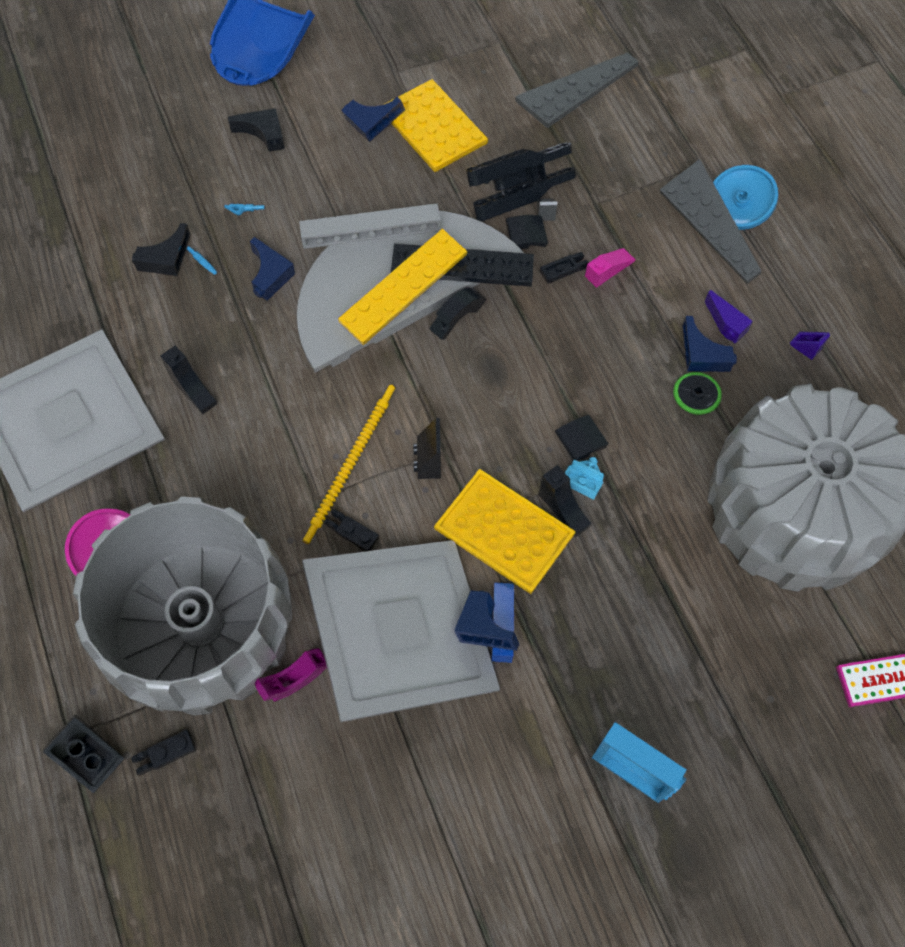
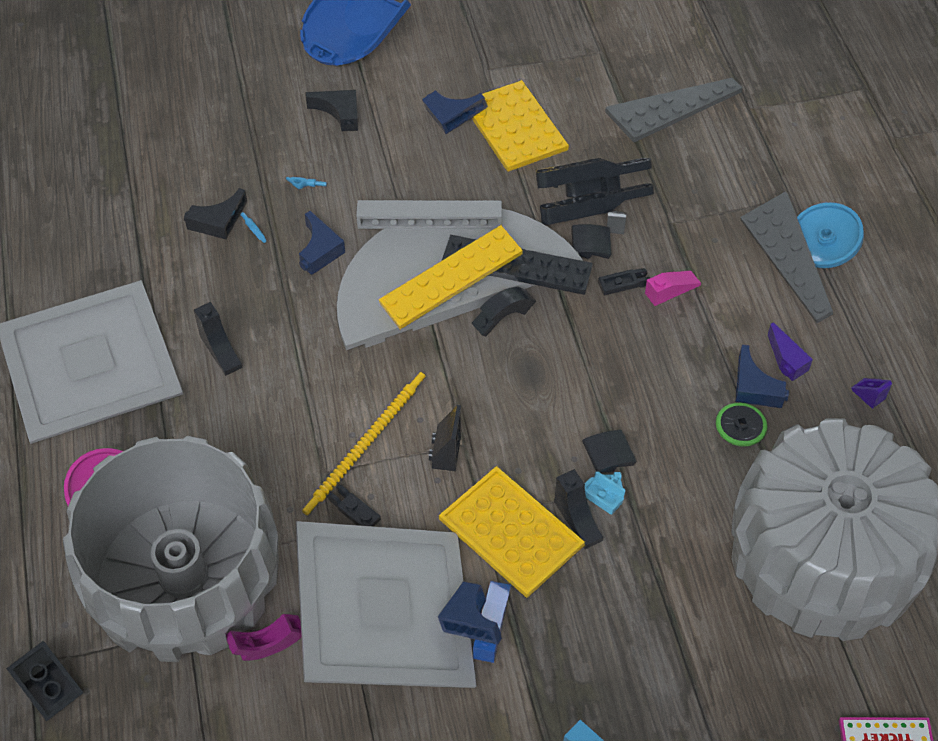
camera: 10 degrees right, 10 degrees down
(165, 752) = (124, 693): black hinge -> none

